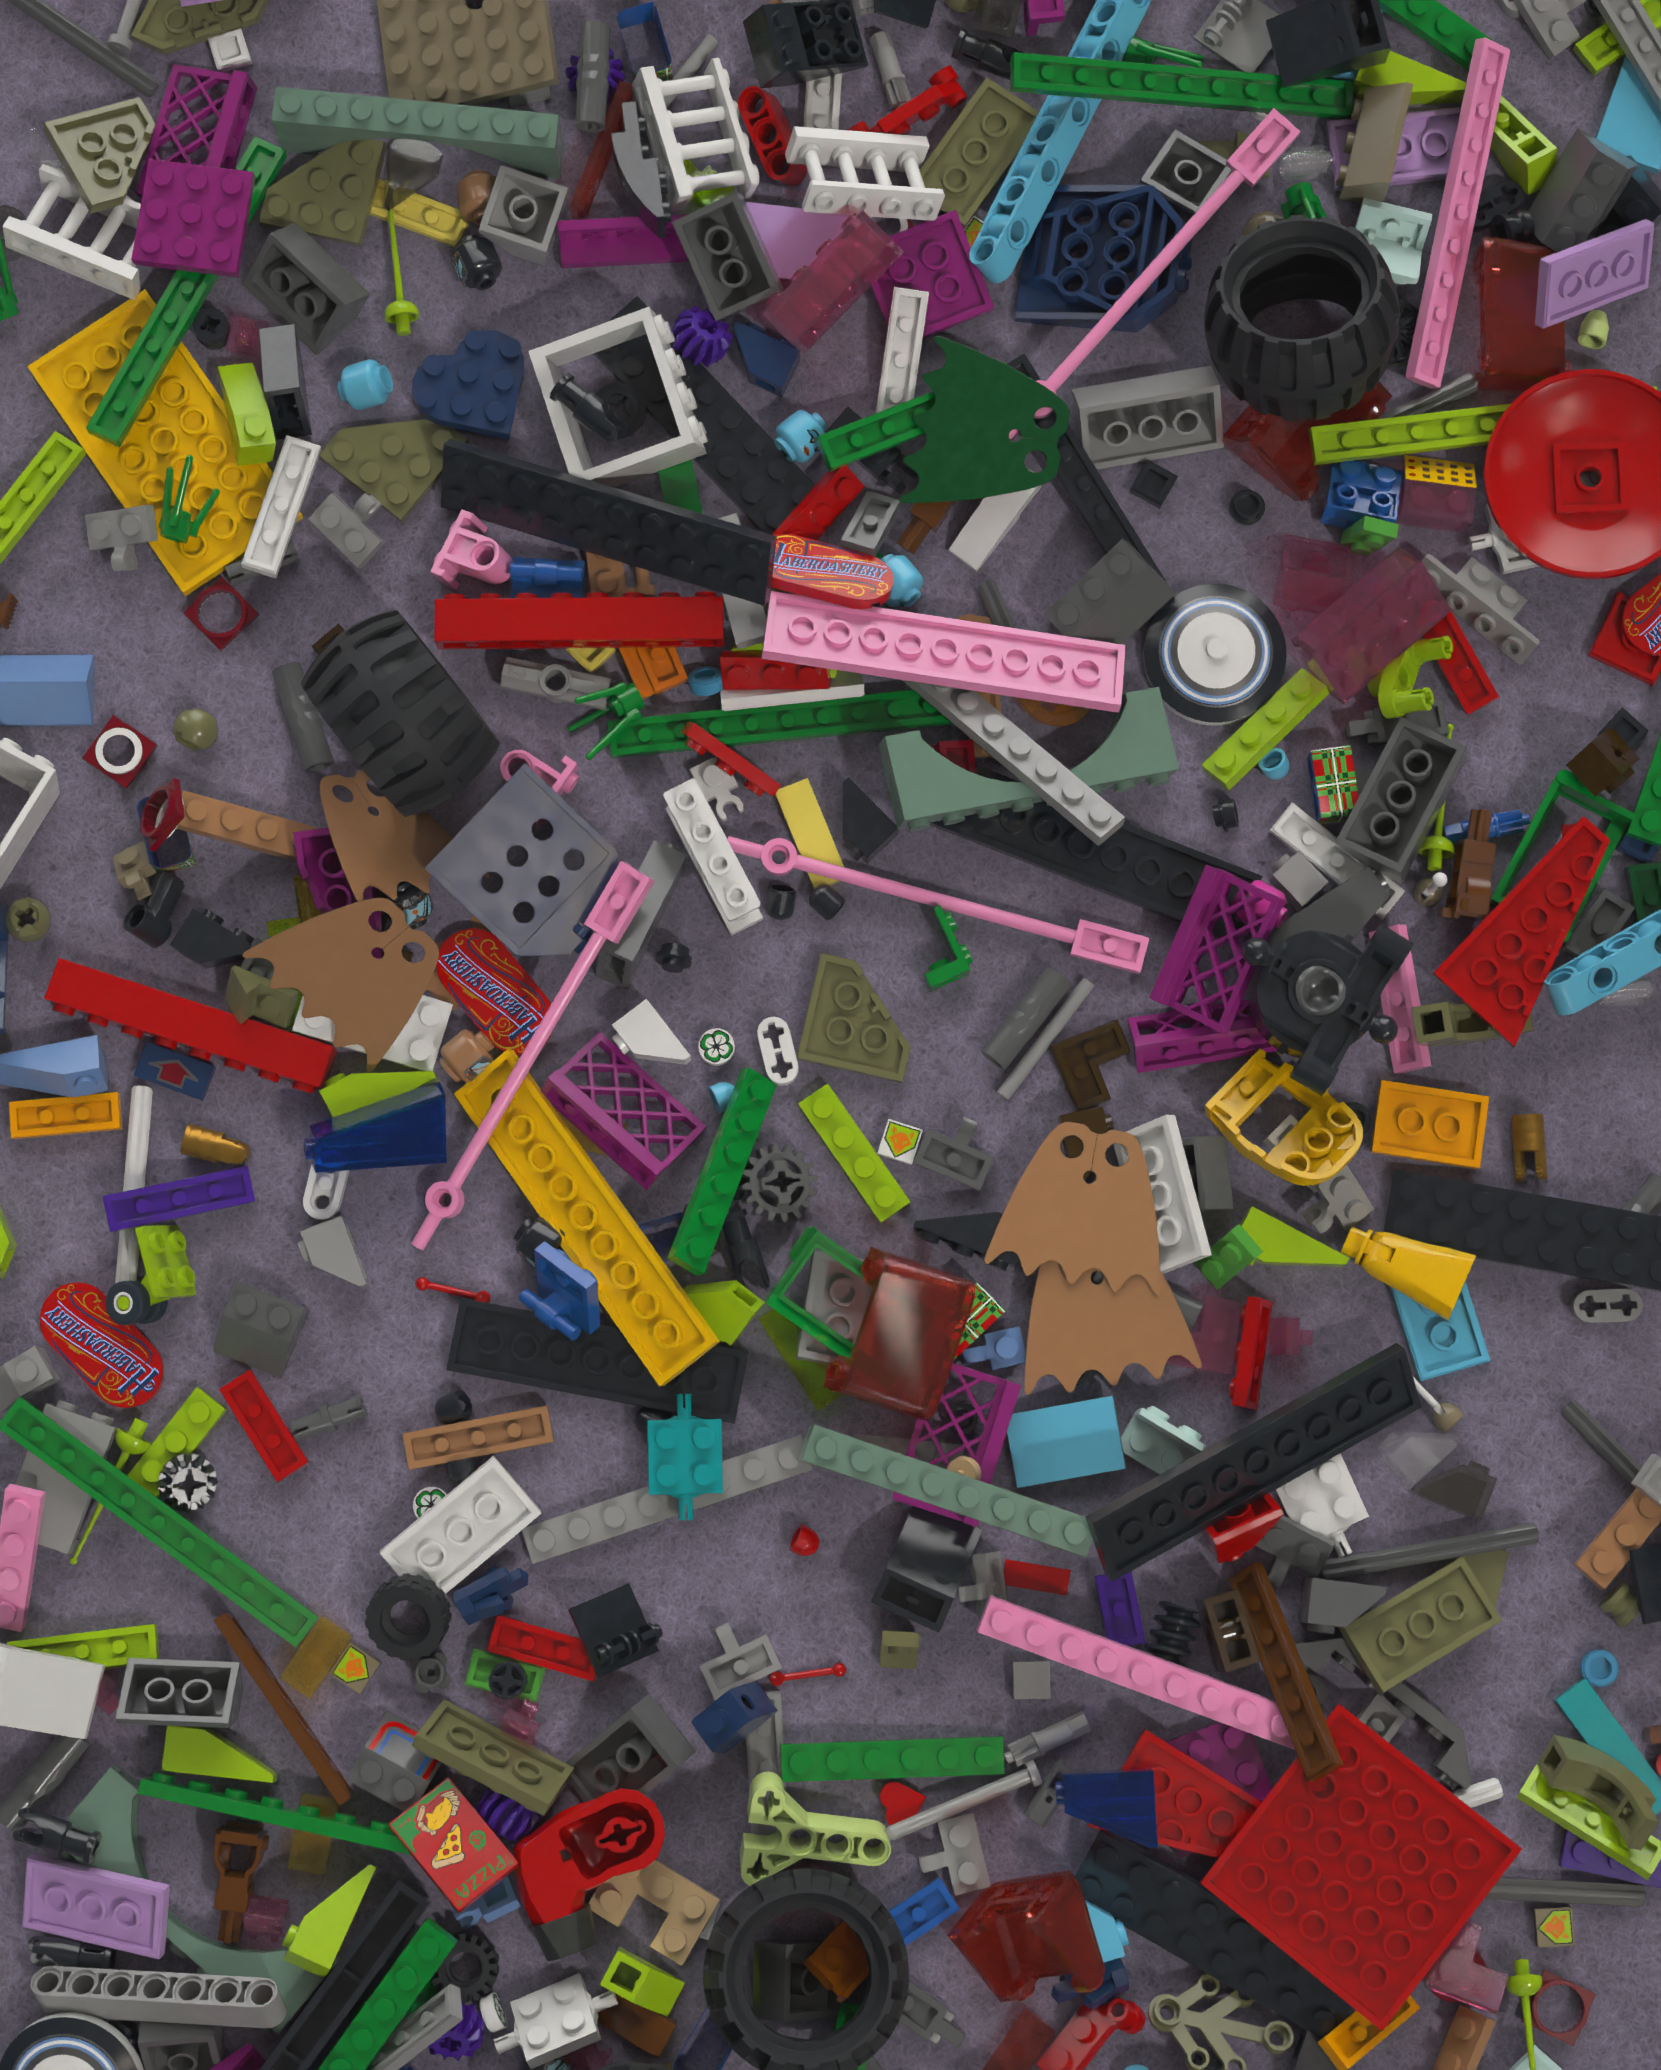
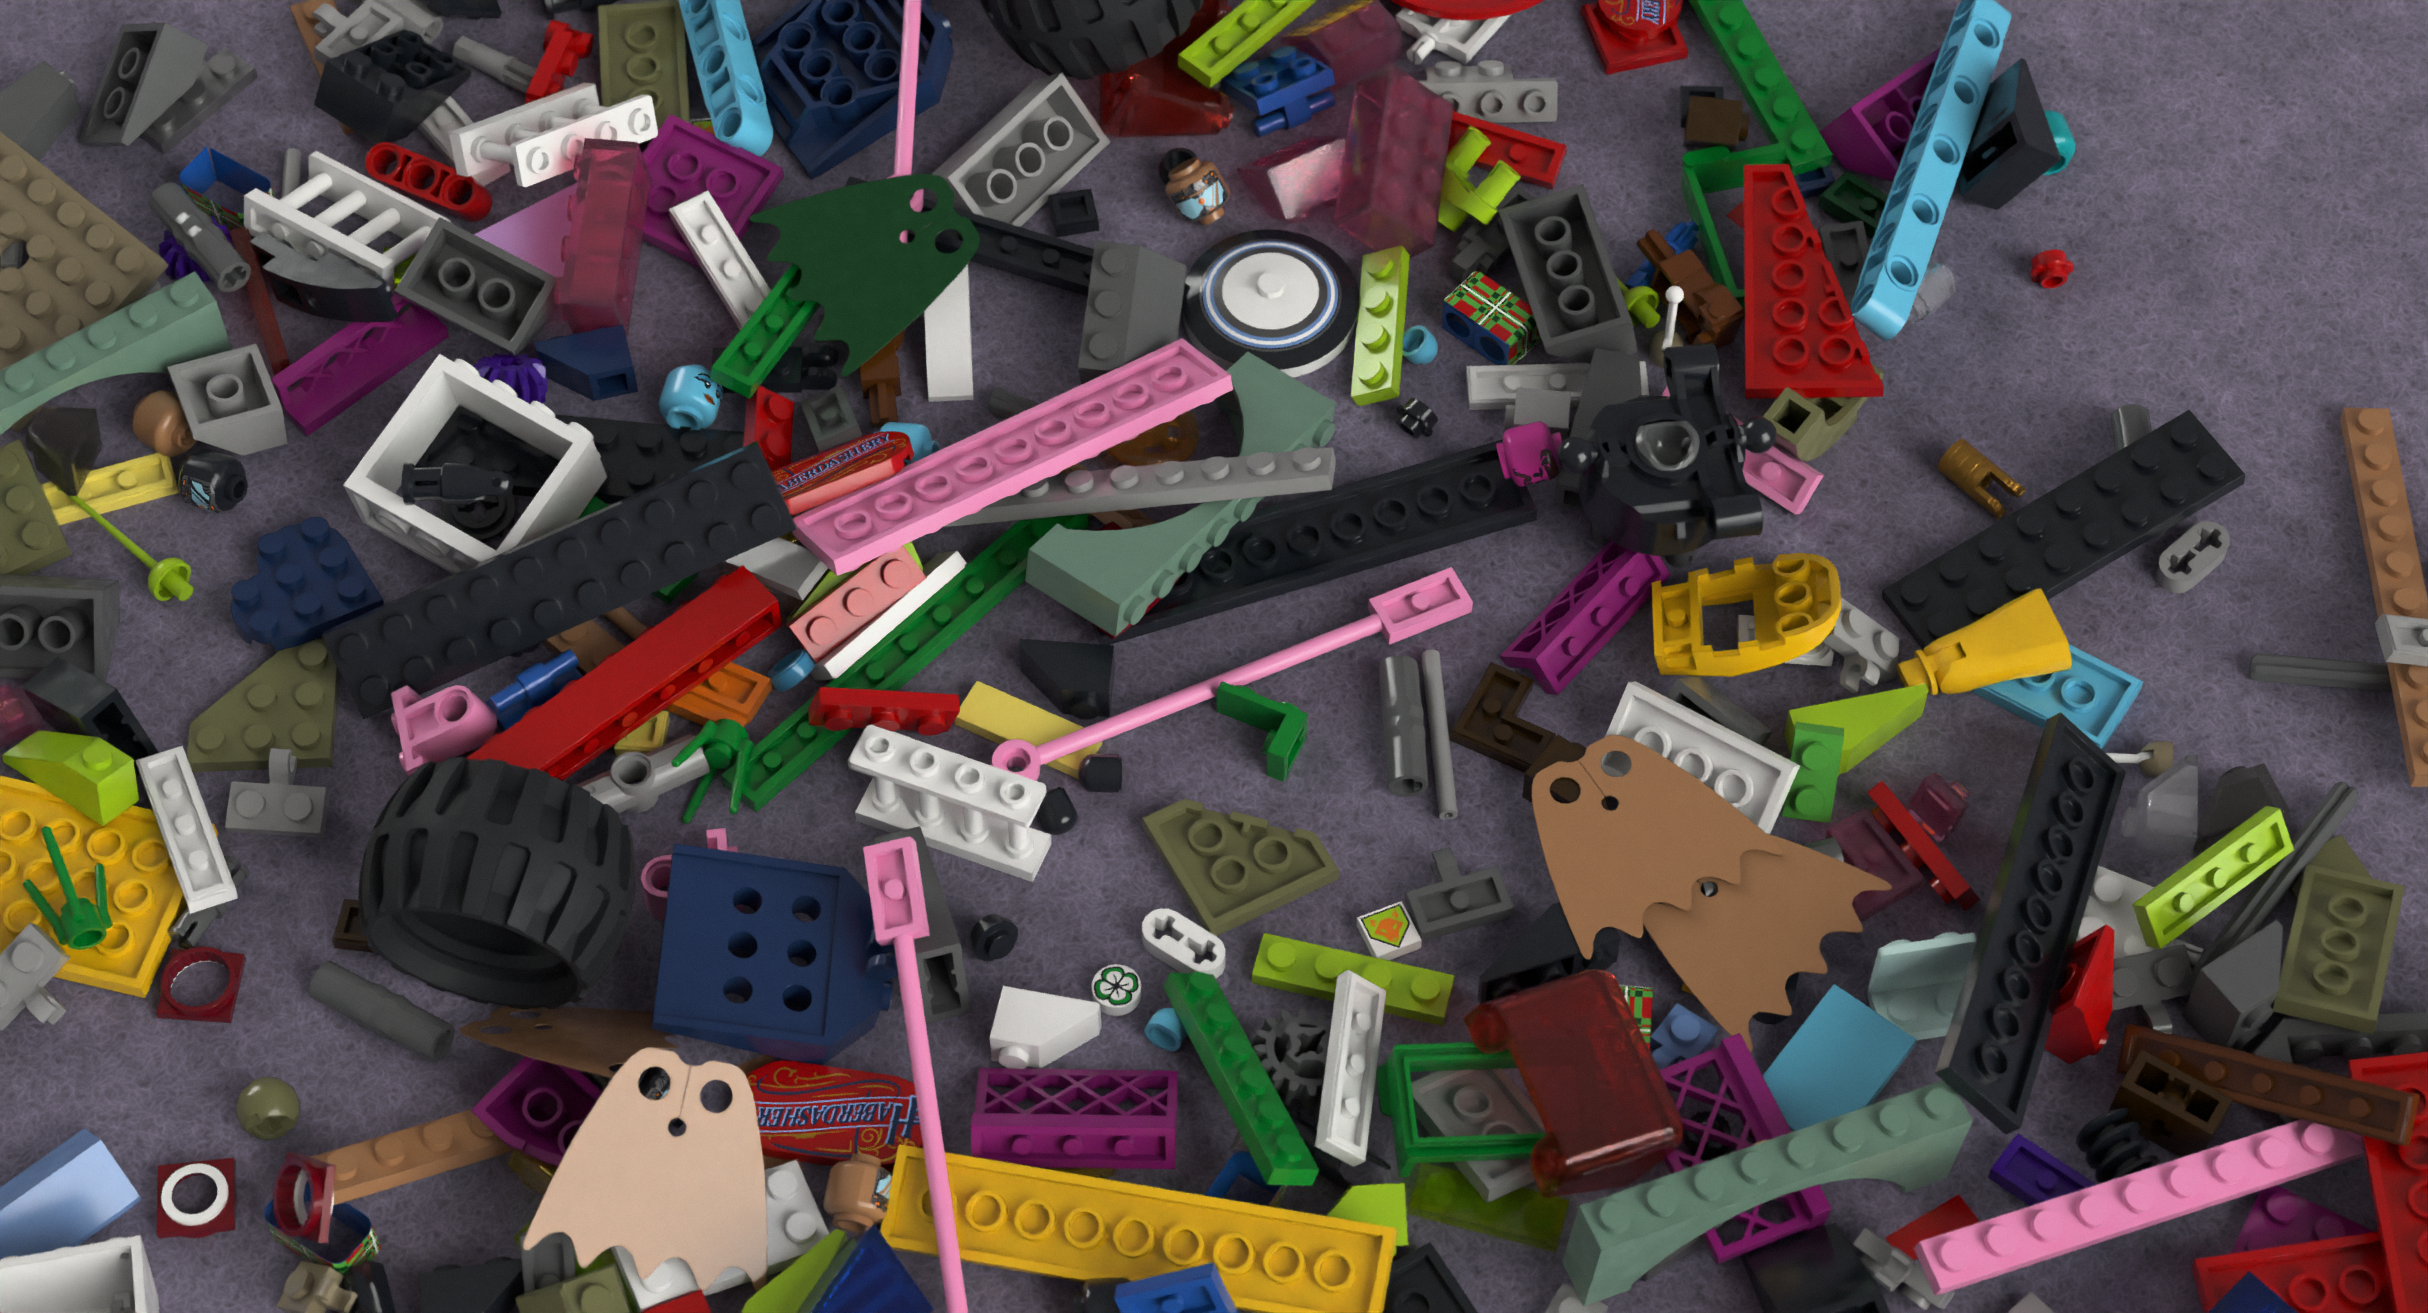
camera: 40 degrees left, 25 degrees down
(365, 384) = (183, 664): medium azure head -> none
(792, 1215) = (1350, 1068): none -> white tile
(1196, 939) = (1500, 534): magenta fence -> none
(1236, 537) = (1197, 191): none -> head
(1369, 535) = (1318, 99): bright green plate -> none
(1391, 1522) = (2213, 877): none -> lime plate
(1429, 1124) = (1874, 527): light orange plate -> none

